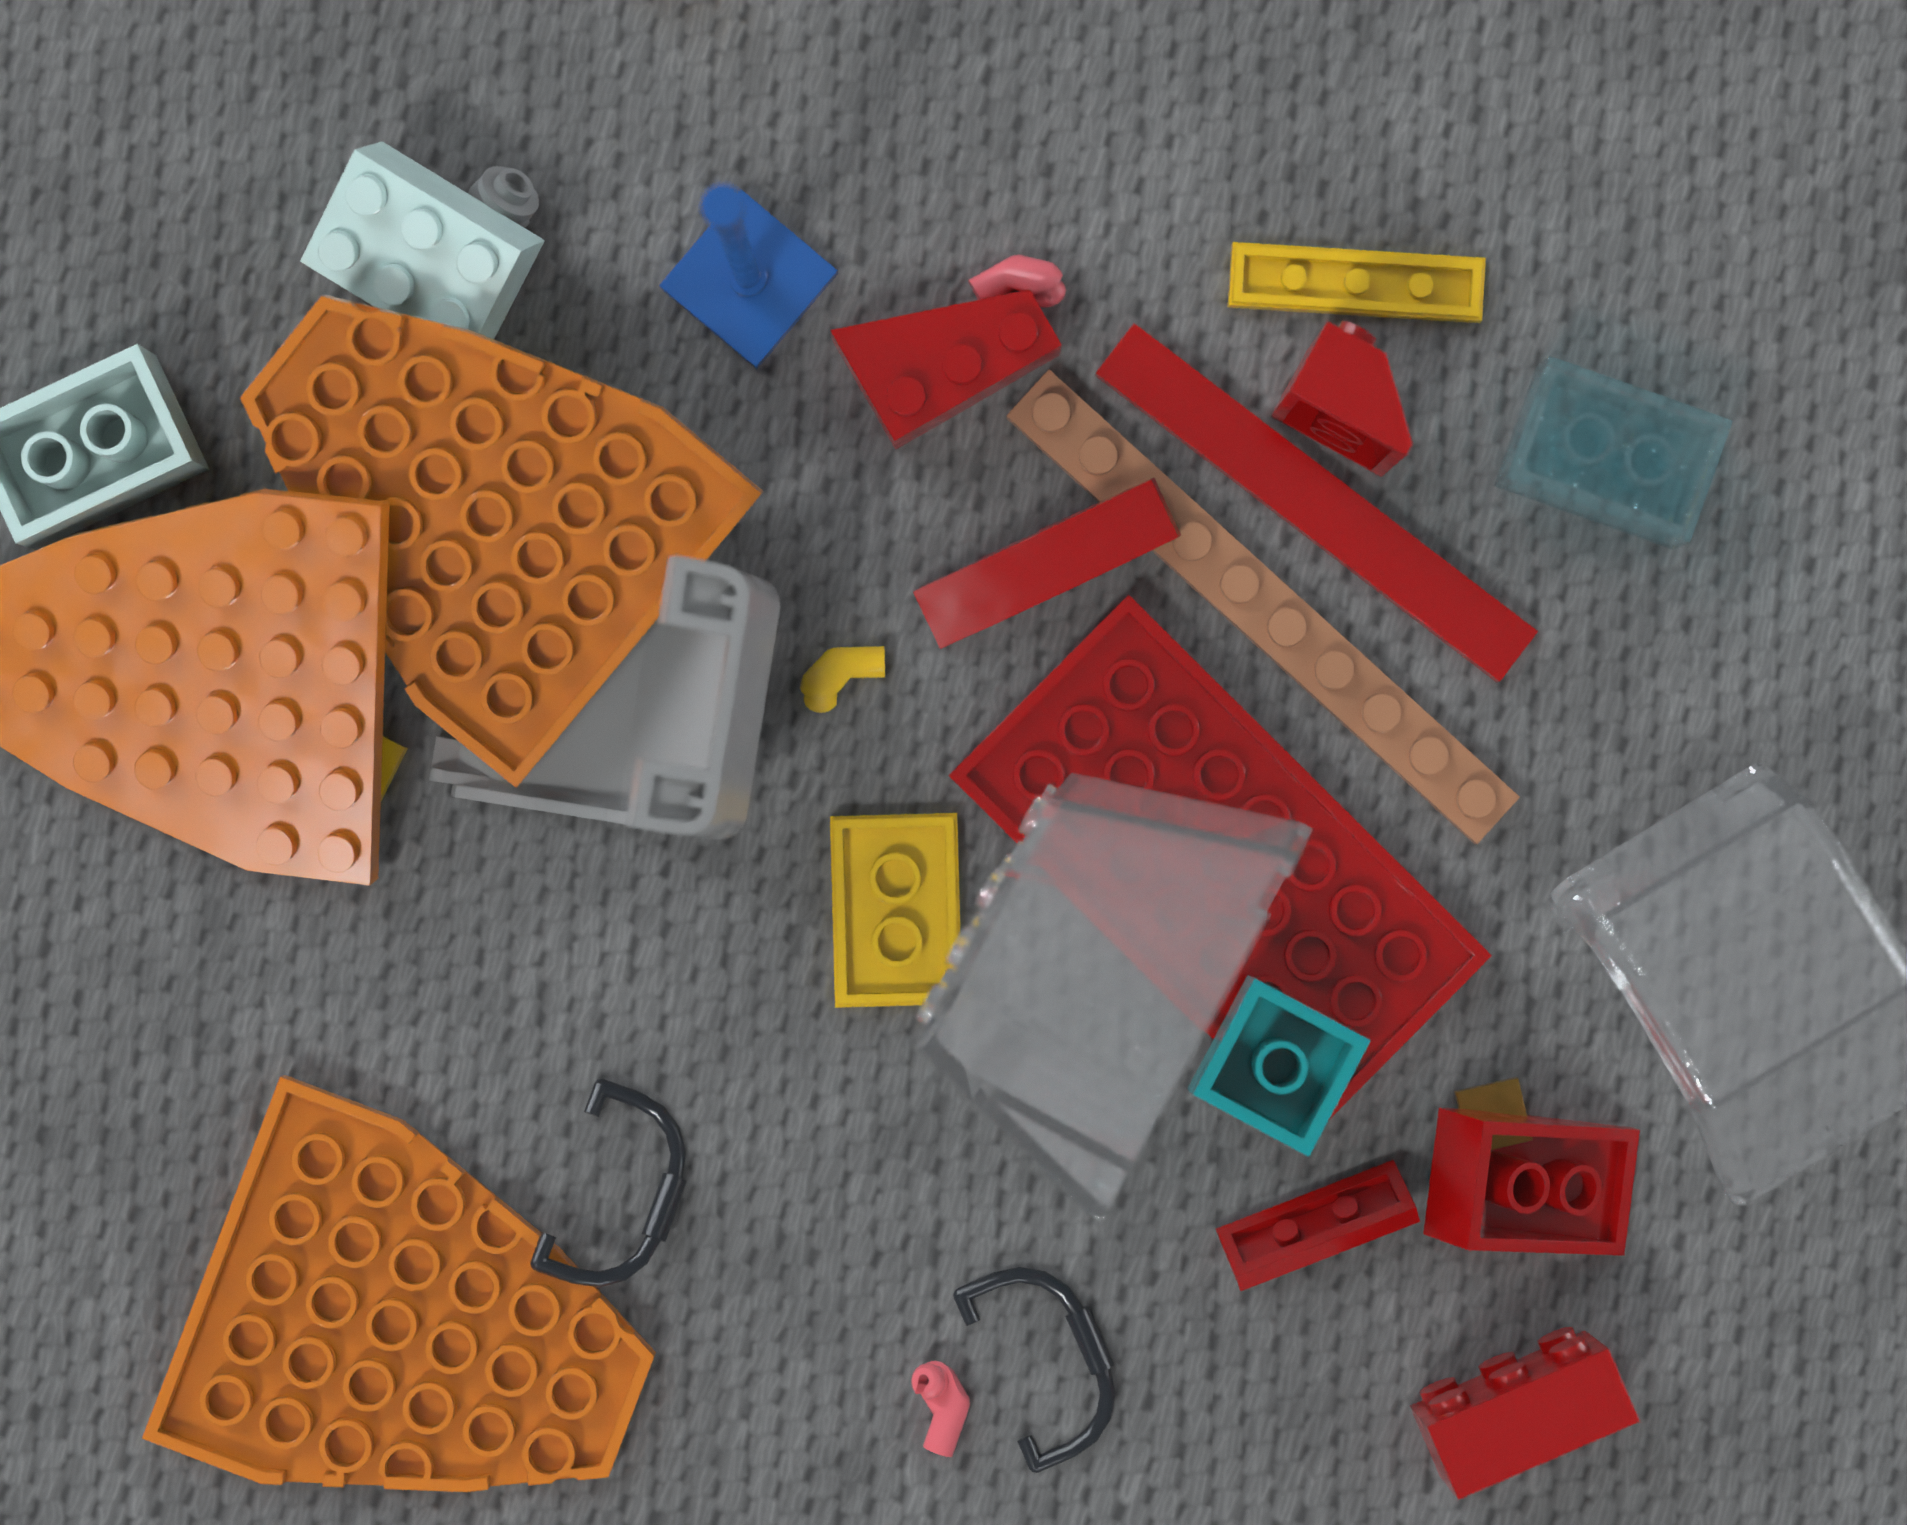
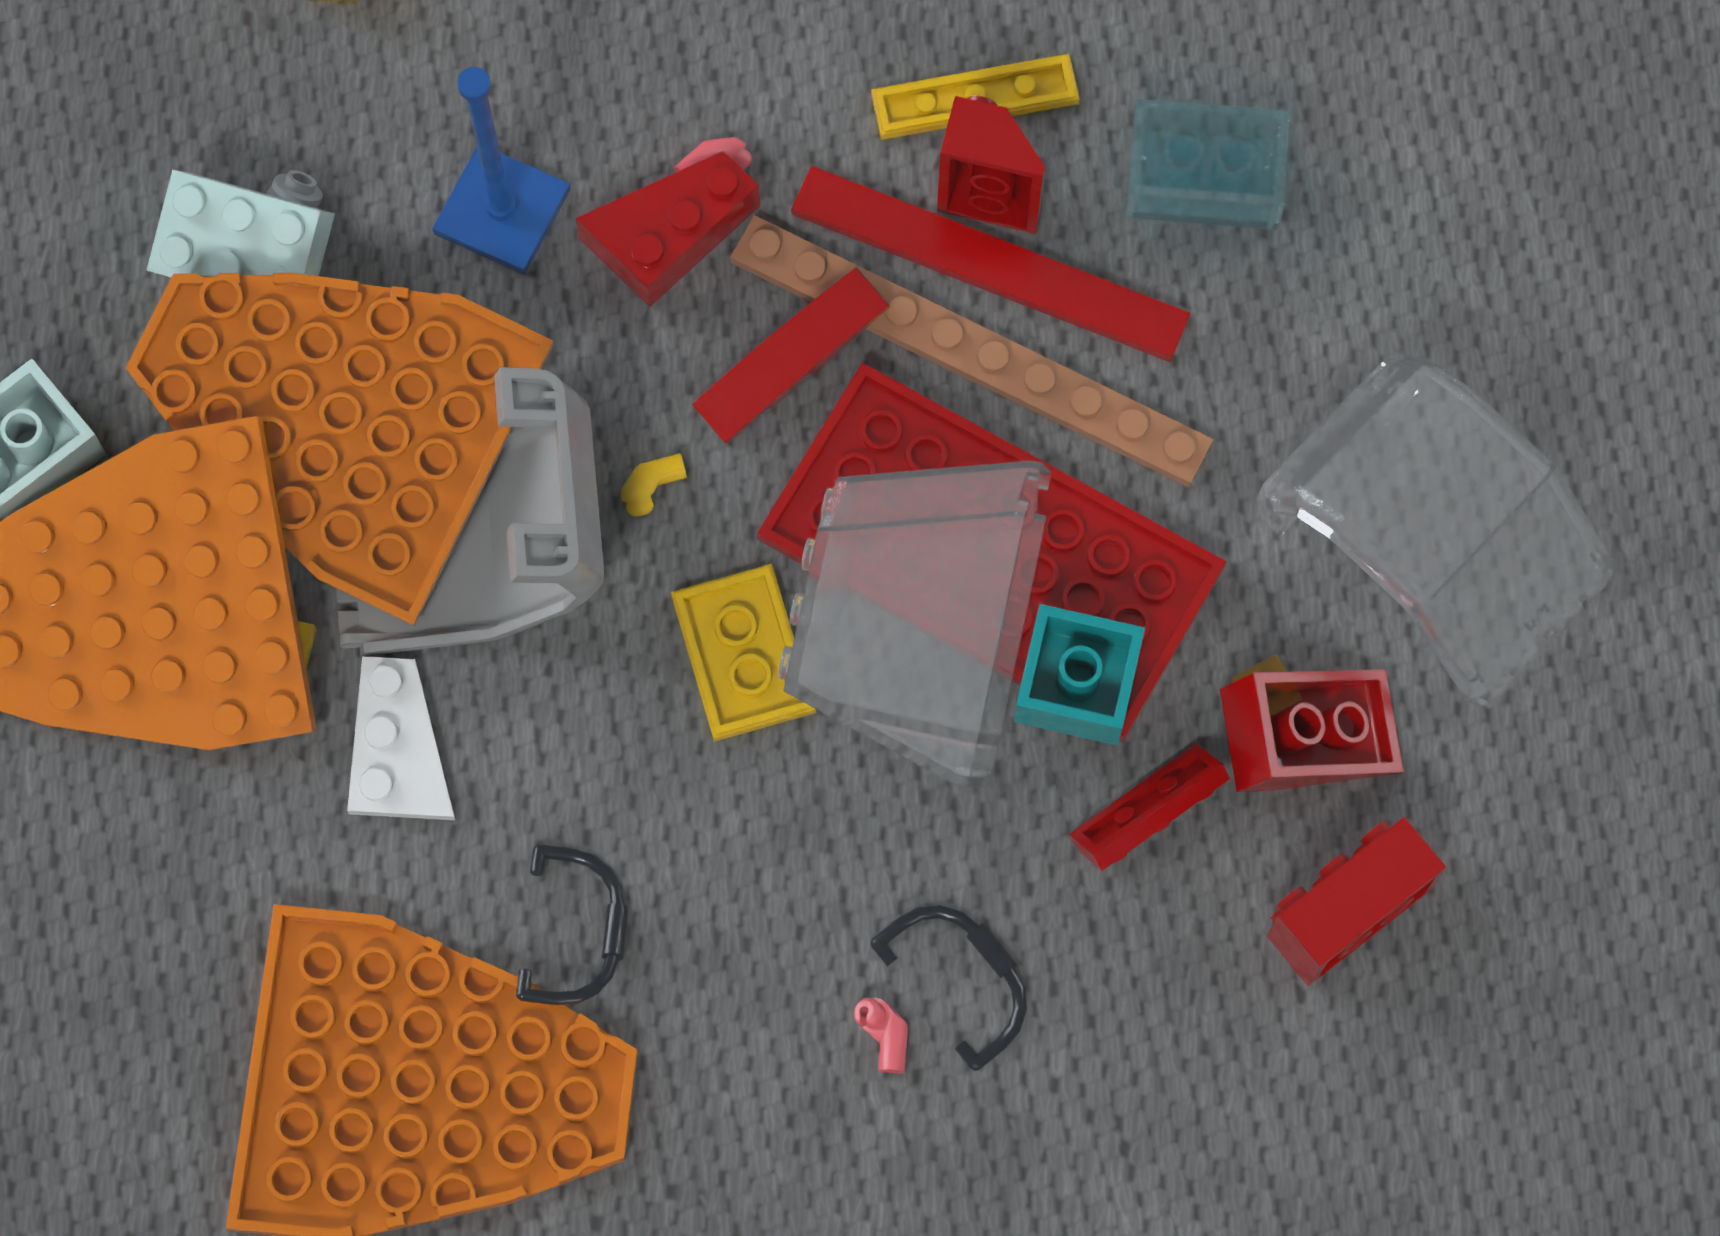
camera: 15 degrees left, 15 degrees down
(464, 919) = (394, 747): none -> white wing

